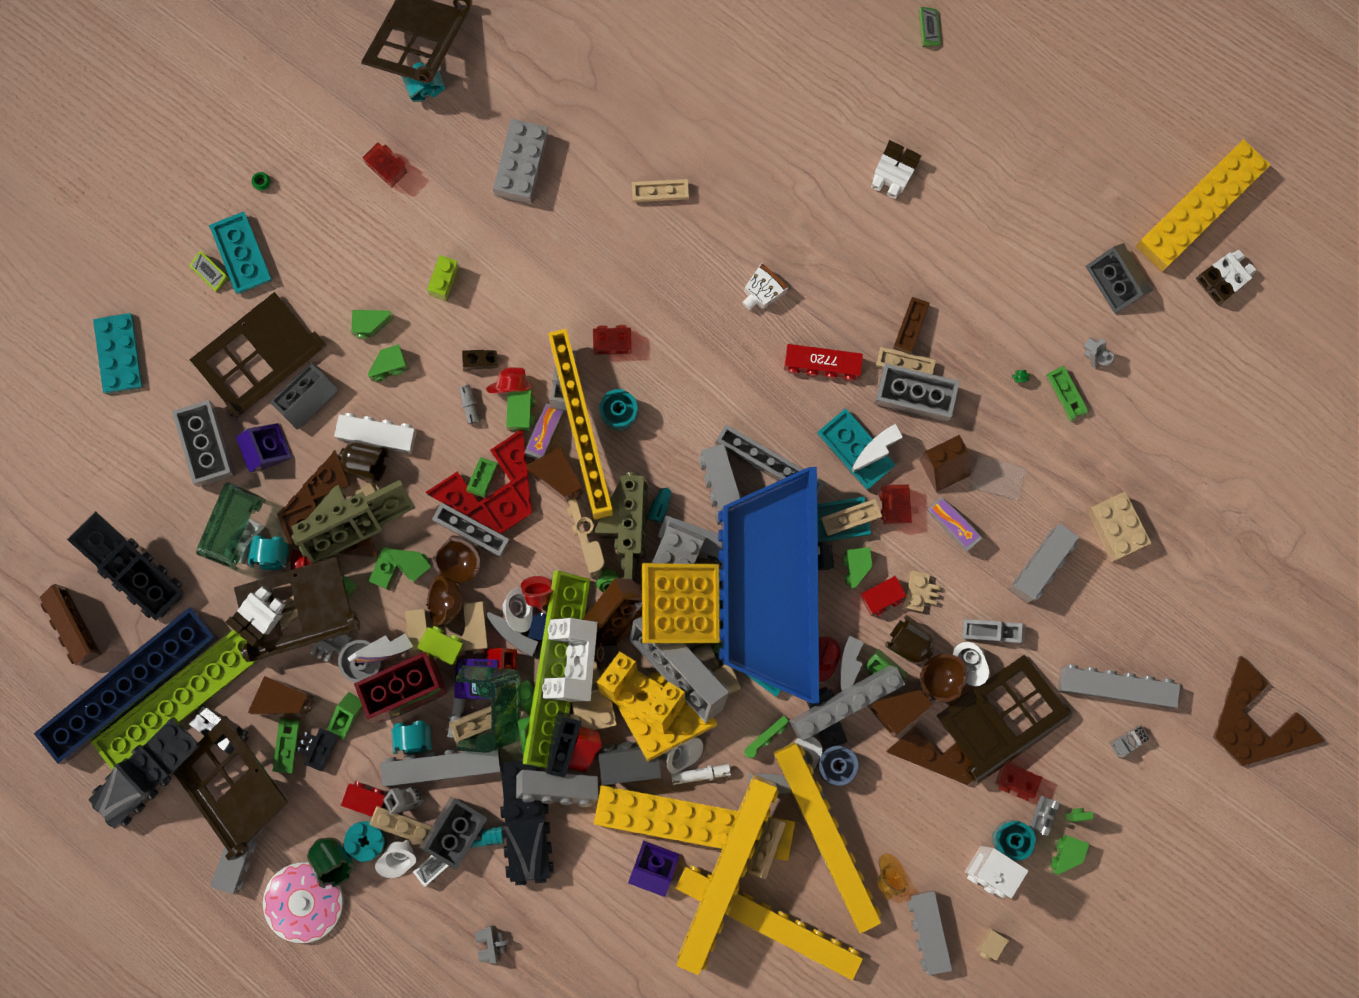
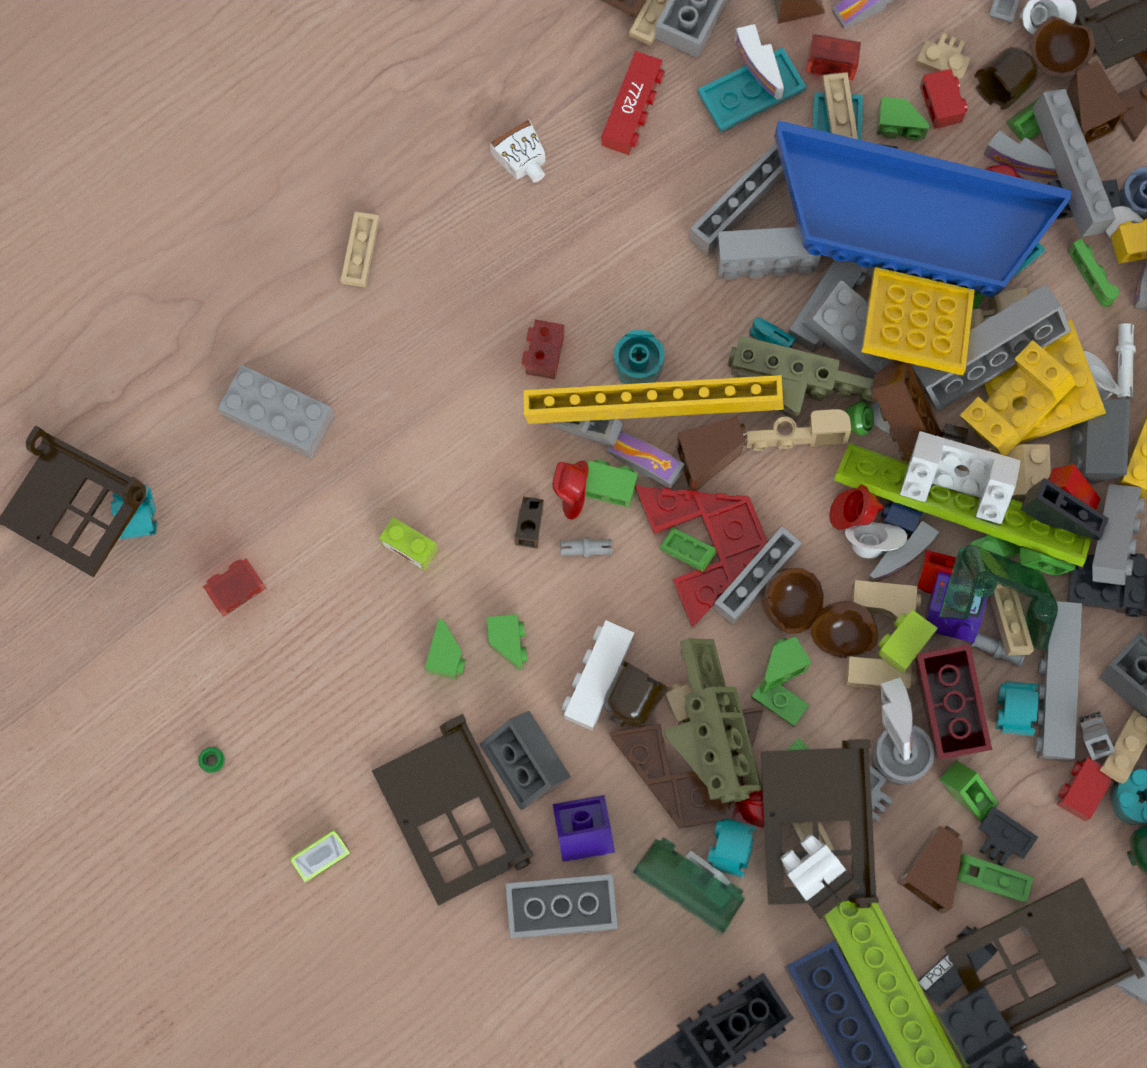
camera: 70 degrees left, 5 degrees down
(117, 353) = (403, 1005): teal plate -> none
(240, 253) = (305, 806): teal plate -> none

